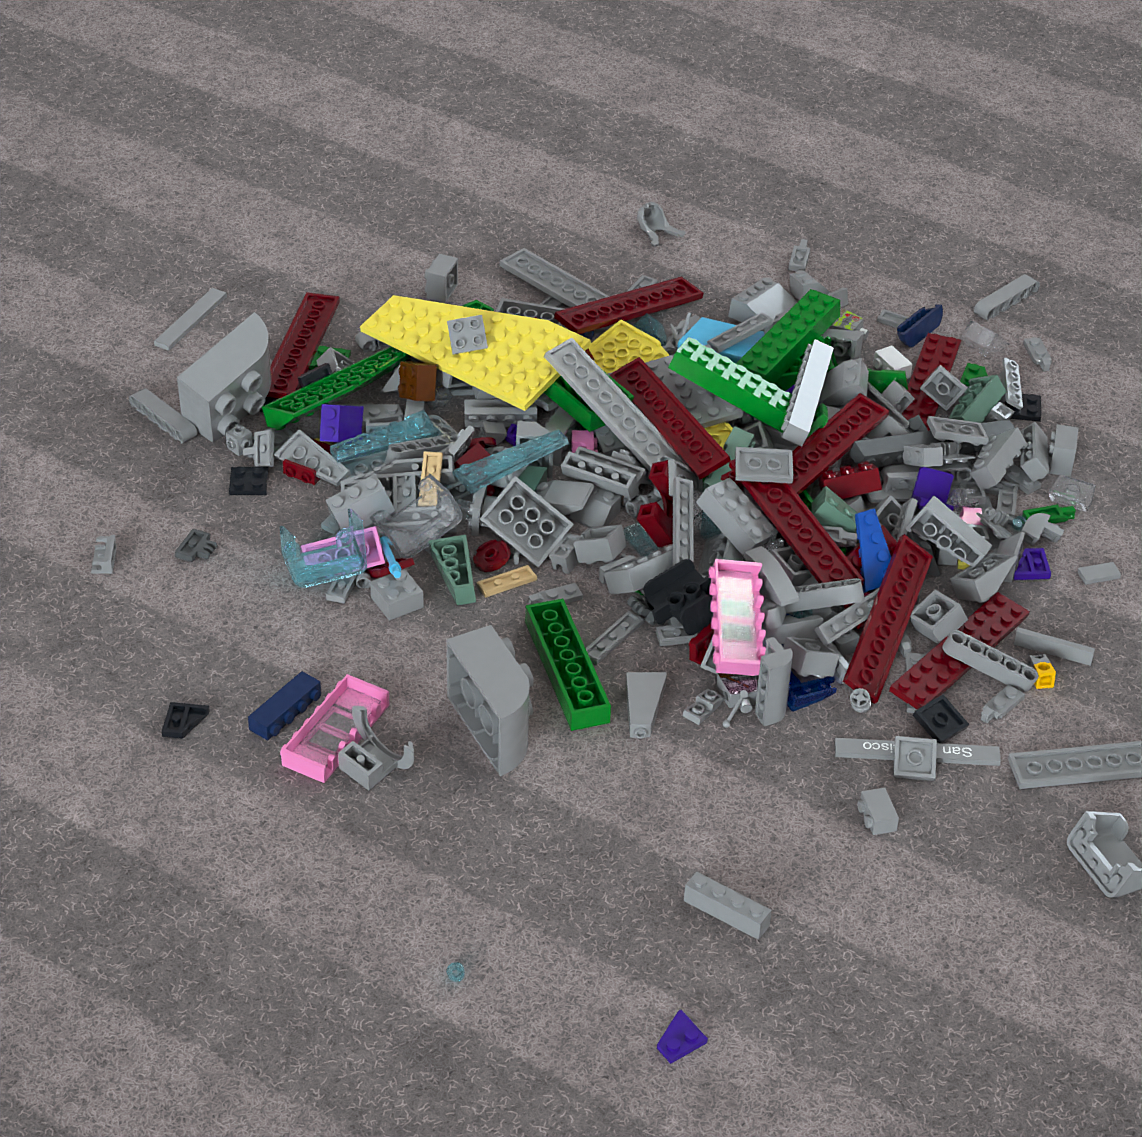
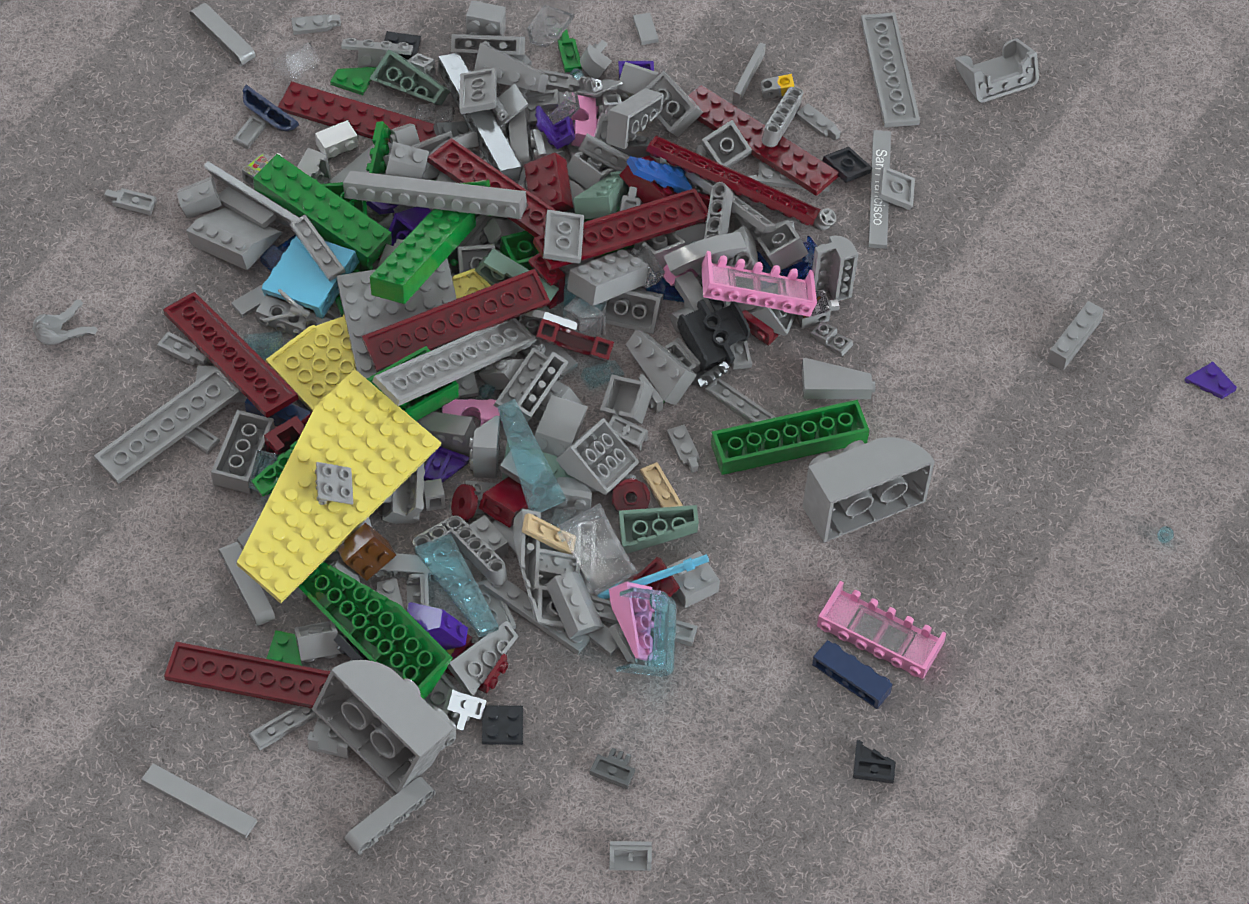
camera: 90 degrees left, 15 degrees up
(371, 759) = (923, 598): light grey piece -> none
(441, 278) = (158, 533): light grey brick -> none
(462, 443) = (497, 507): light grey plate -> none
(683, 520) = (623, 321): light grey plate -> none
(743, 694) = (831, 301): light grey hinge -> none
(878, 811) = (958, 221): light grey brick -> none
(923, 455) = (518, 121): light grey brick -> none
(943, 387) = (389, 100): light grey slope -> none

